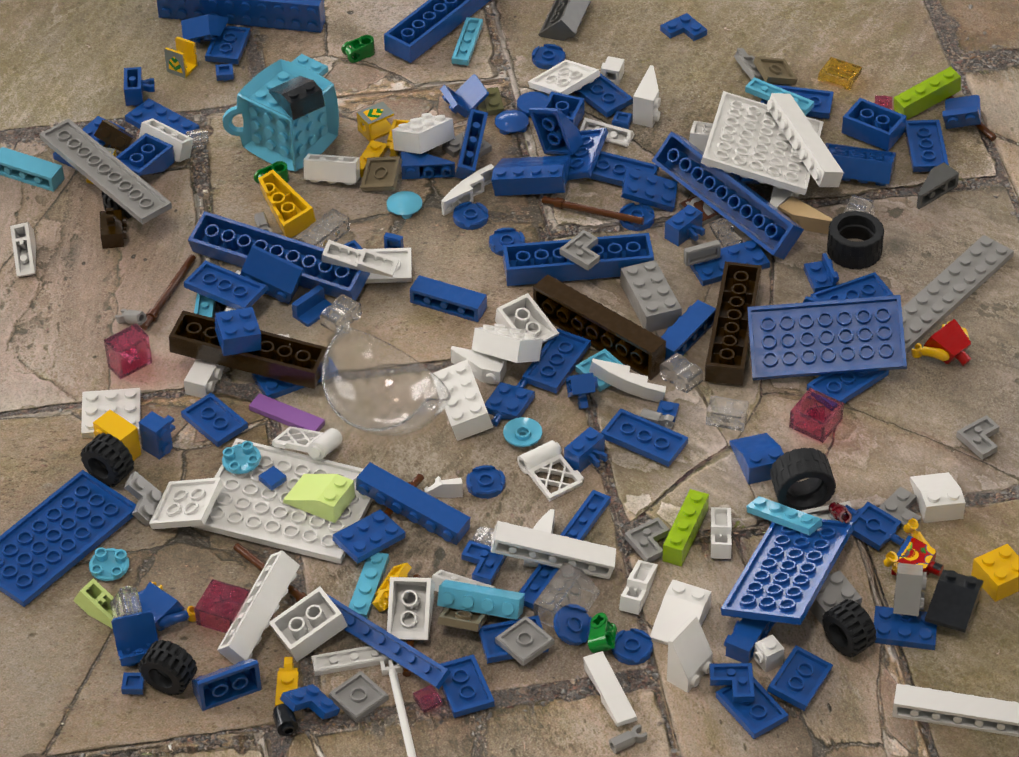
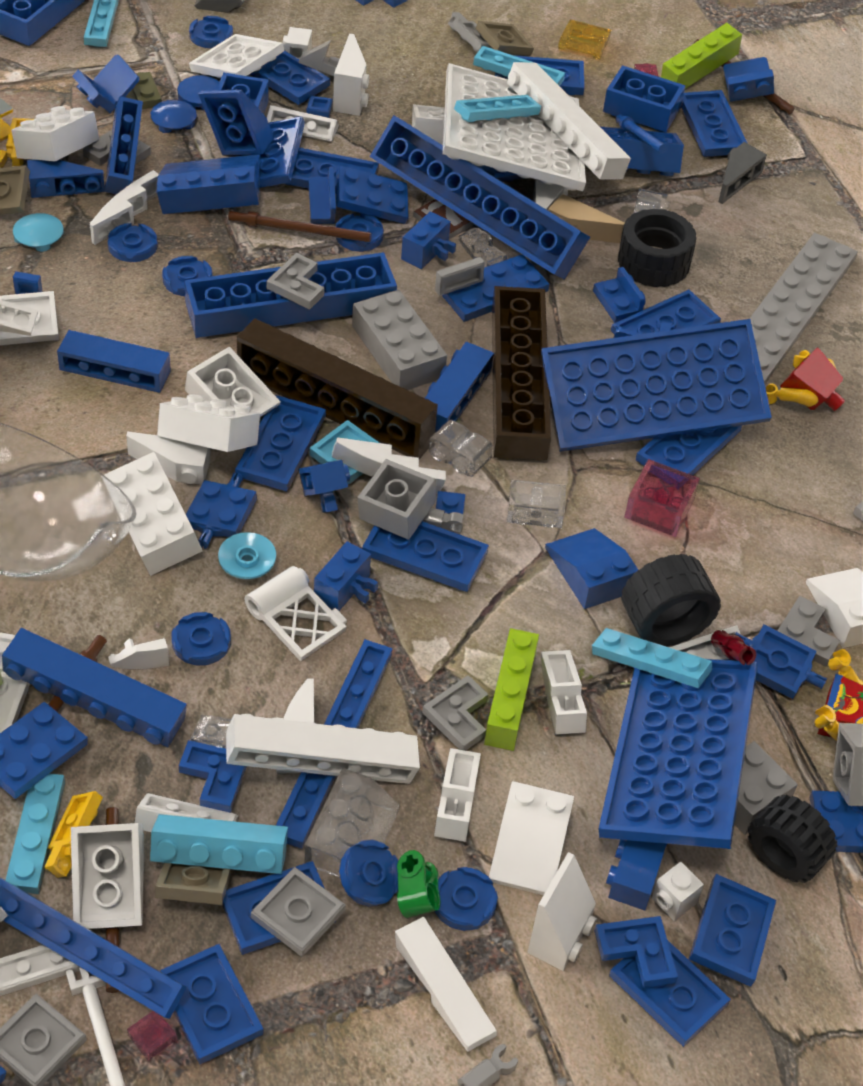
camera: 15 degrees left, 5 degrees up
(612, 190) = (322, 199): none -> blue panel
(626, 83) = (317, 59): none -> light grey slope
(628, 401) = (397, 498): none -> light grey brick
(751, 129) = (497, 108): none -> medium azure plate
(857, 145) = (628, 124): none -> blue bar

